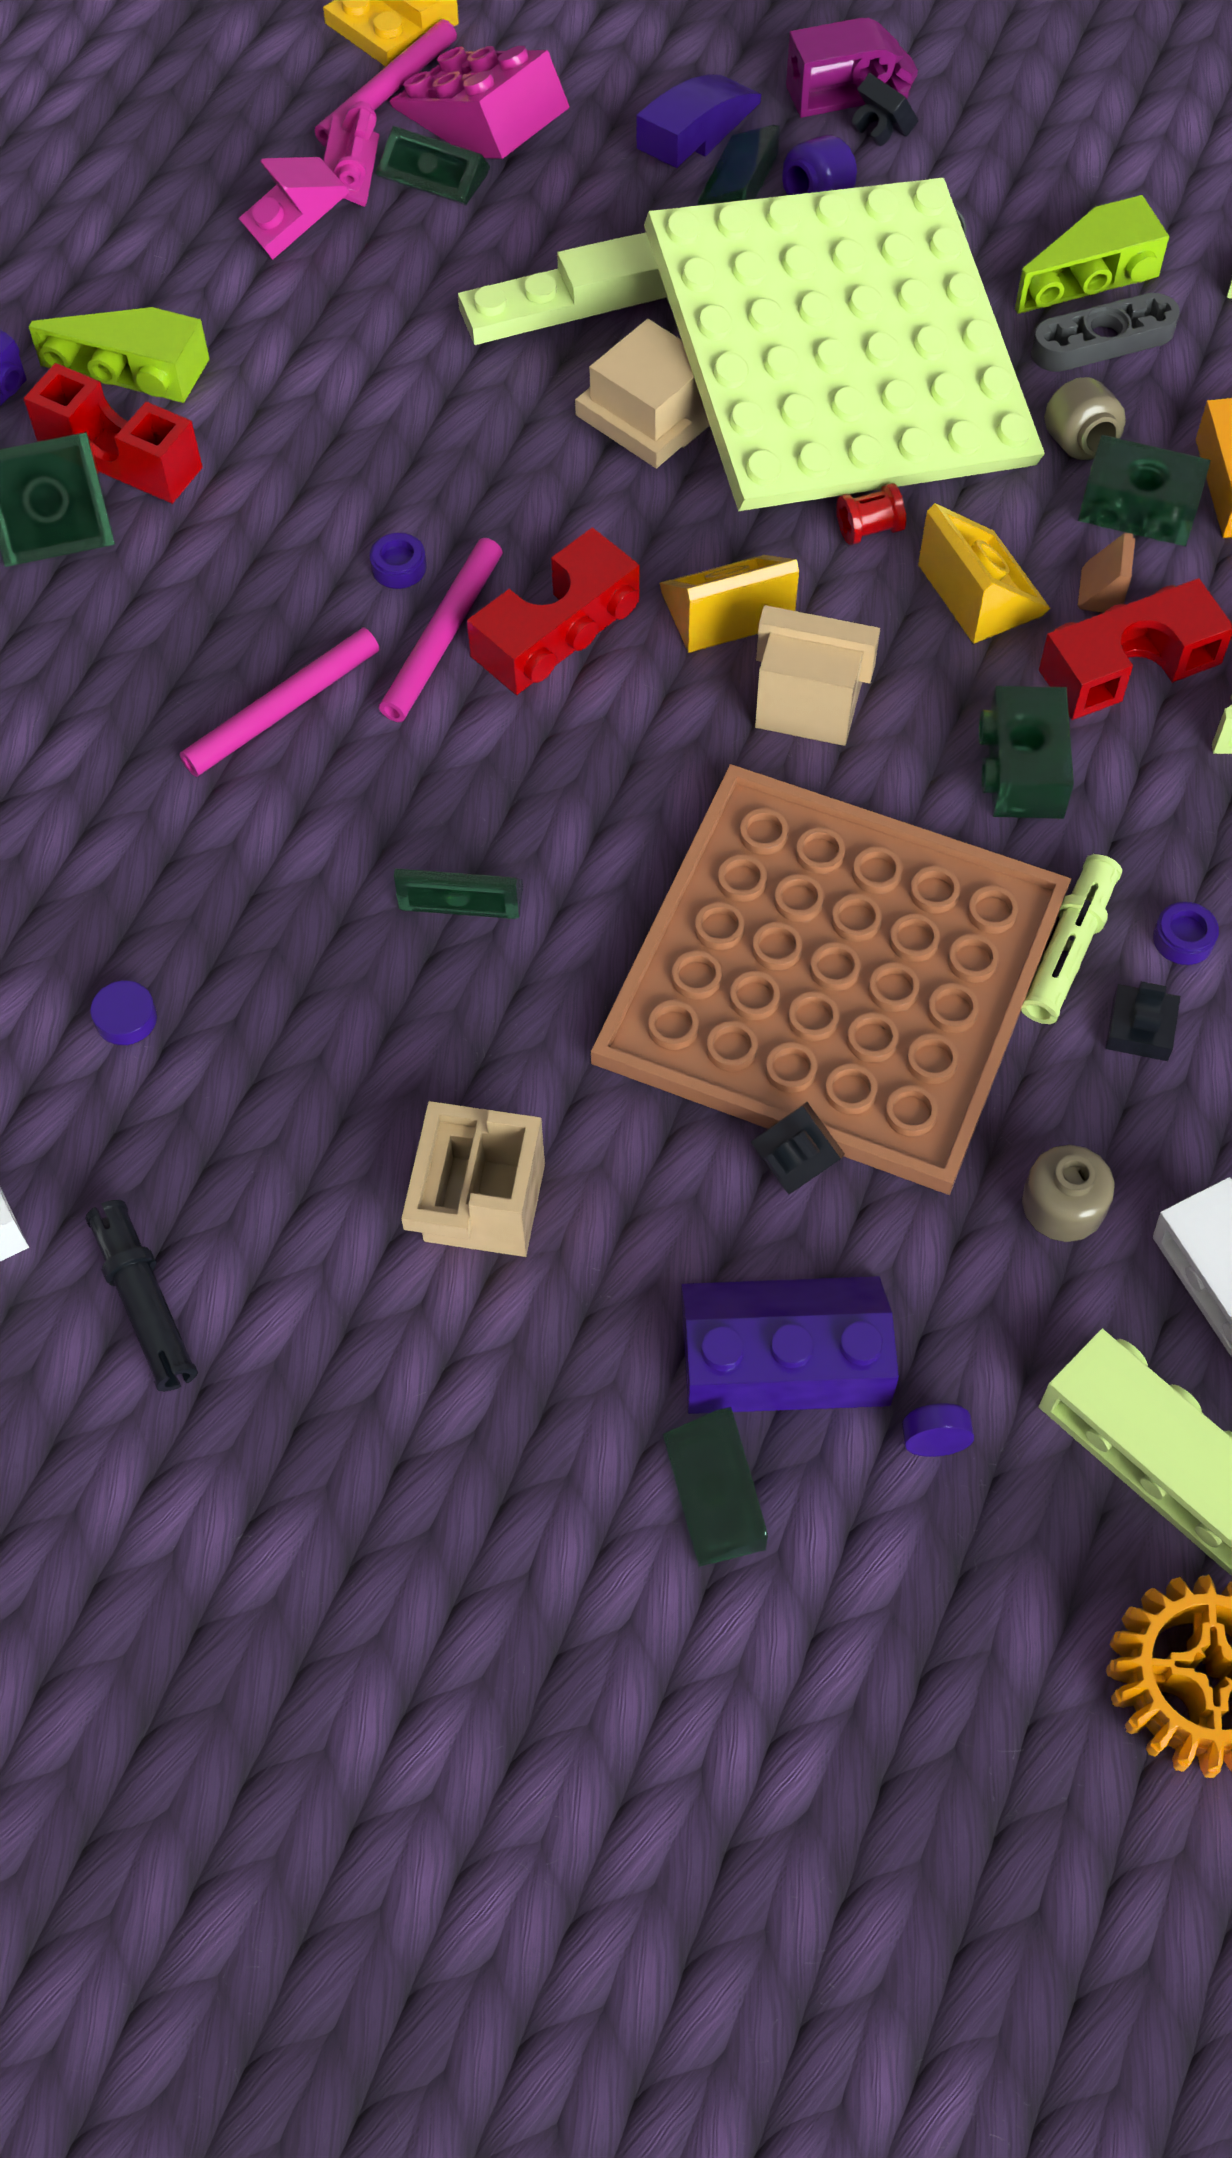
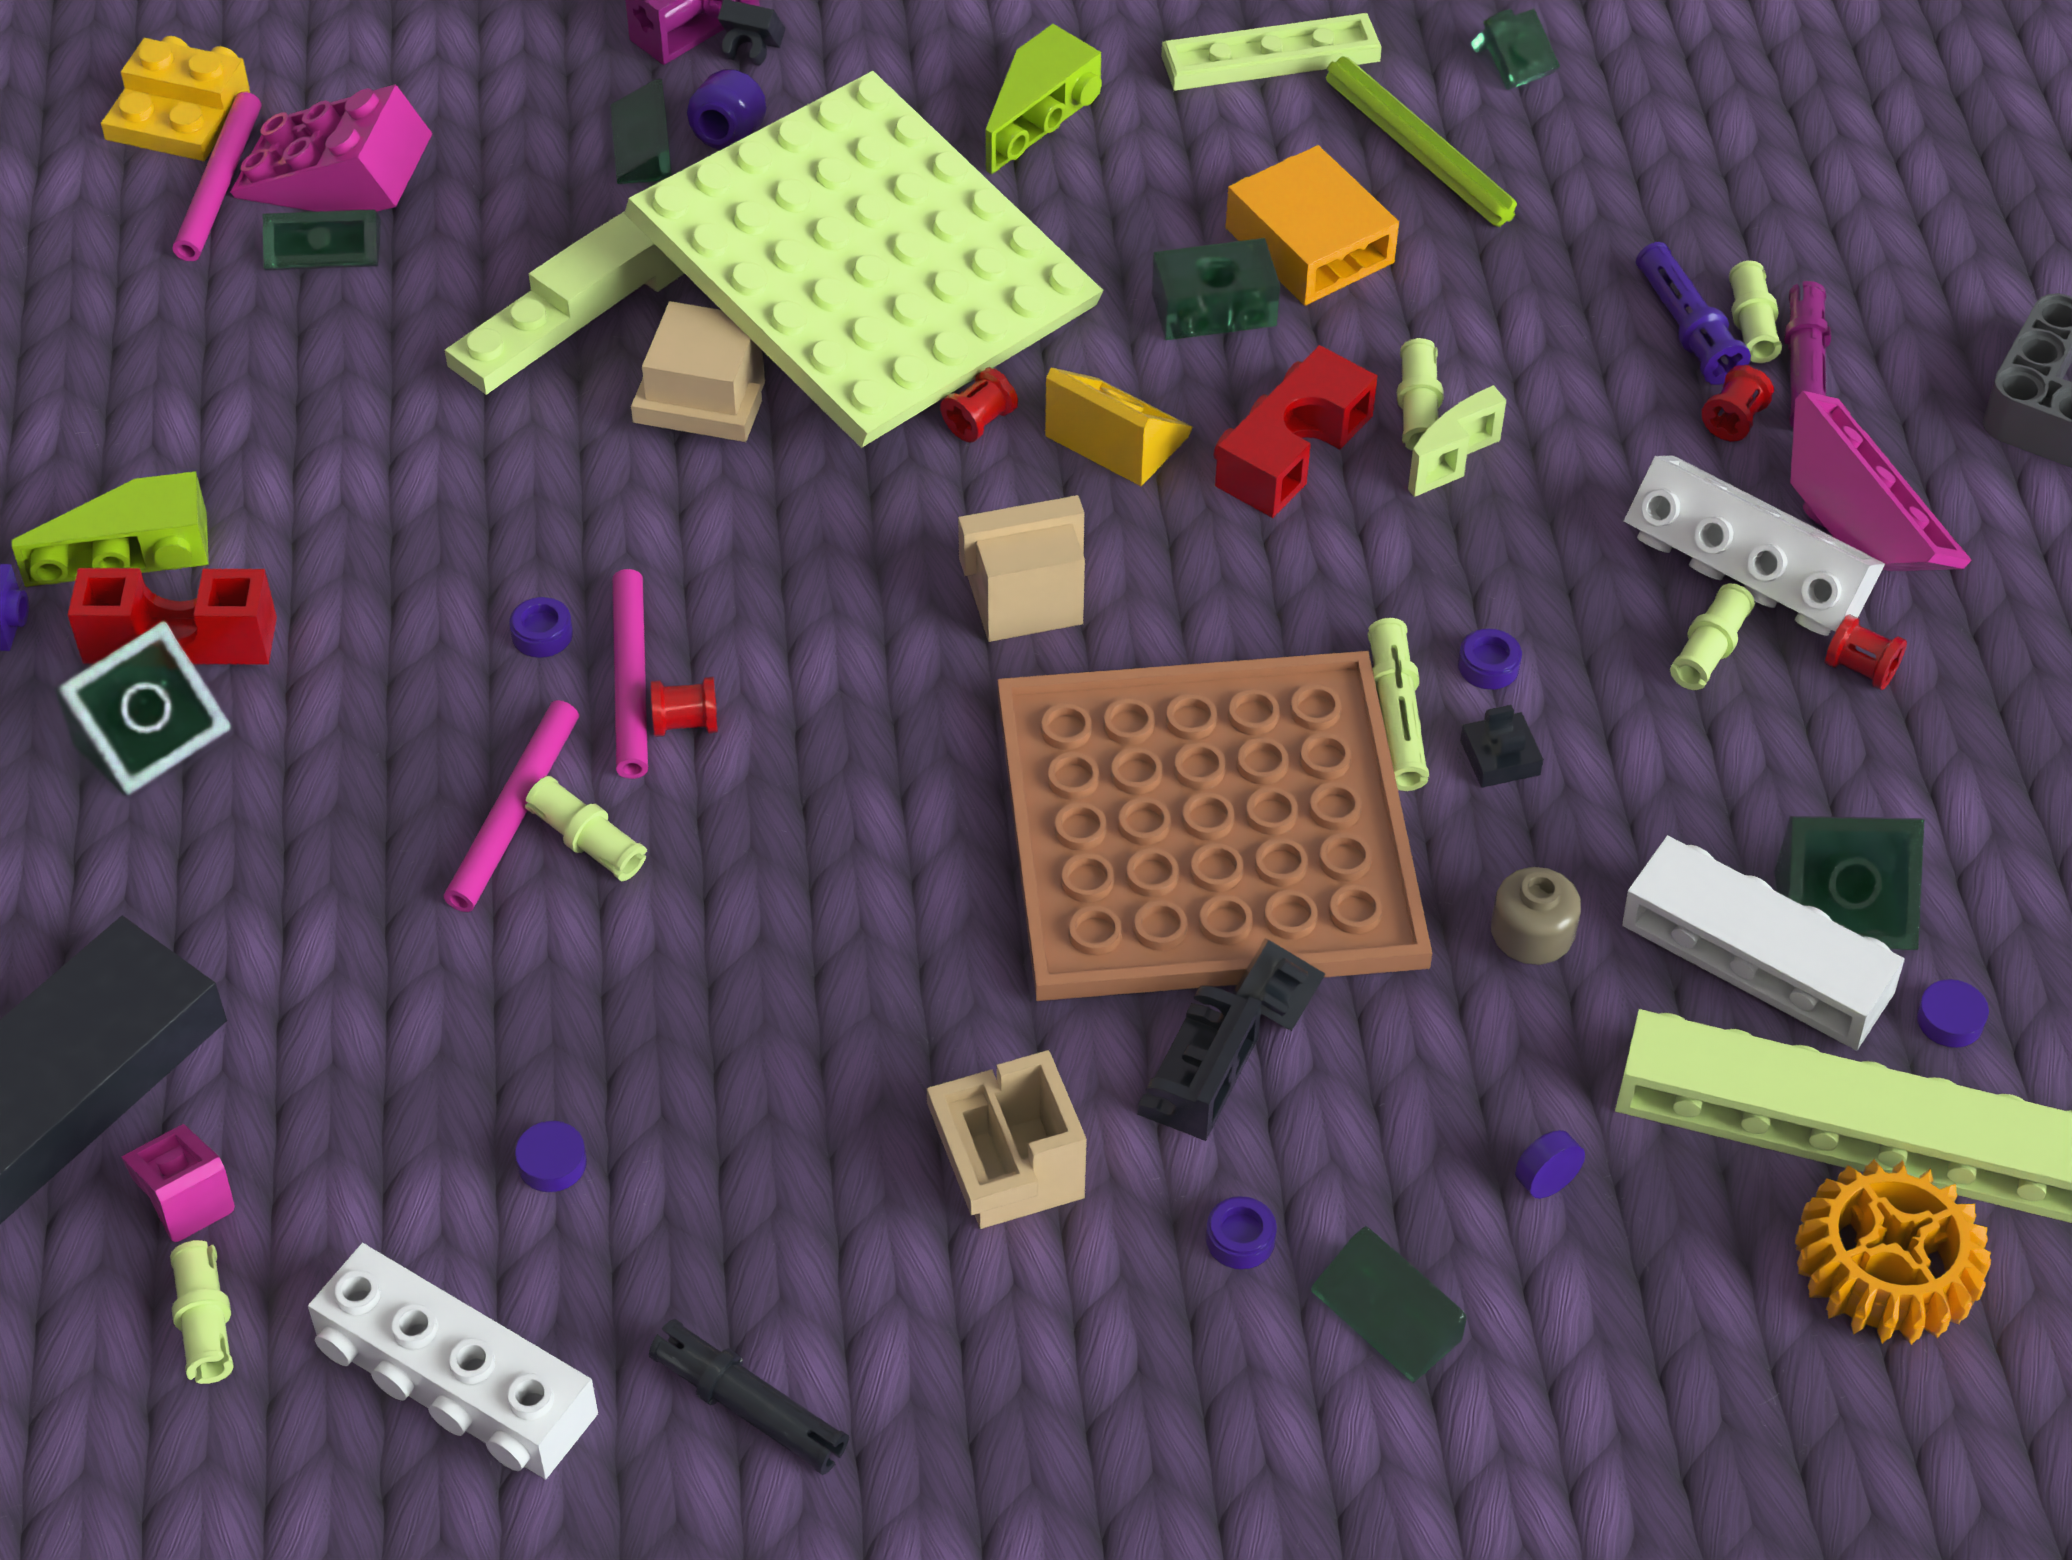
camera: 30 degrees left, 10 degrees down
(301, 197) = (209, 323): dark pink slope -> none
(321, 747) = (585, 828): none -> yellowish green pin
(353, 150) = (231, 257): dark pink hinge -> none
(458, 893) = (811, 903): clear green slope -> none
(461, 676) = (684, 706): none -> red bush
(527, 640) = (758, 573): red arch -> none
(633, 1355) = (1241, 1232): none -> dark purple tile
(693, 117) = (566, 101): dark purple slope -> none
(694, 1188) = (1203, 1062): none -> black hinge
(729, 599) = (898, 532): yellow slope -> none
(788, 1345) = (1376, 1156): dark purple slope -> none
(1028, 752) = (1259, 558): clear green brick -> none
(1071, 343) = (1078, 180): dark grey beam -> none
(1081, 414) = (1121, 244): dark tan head -> none
(1107, 575) = (1230, 377): nougat slope -> none

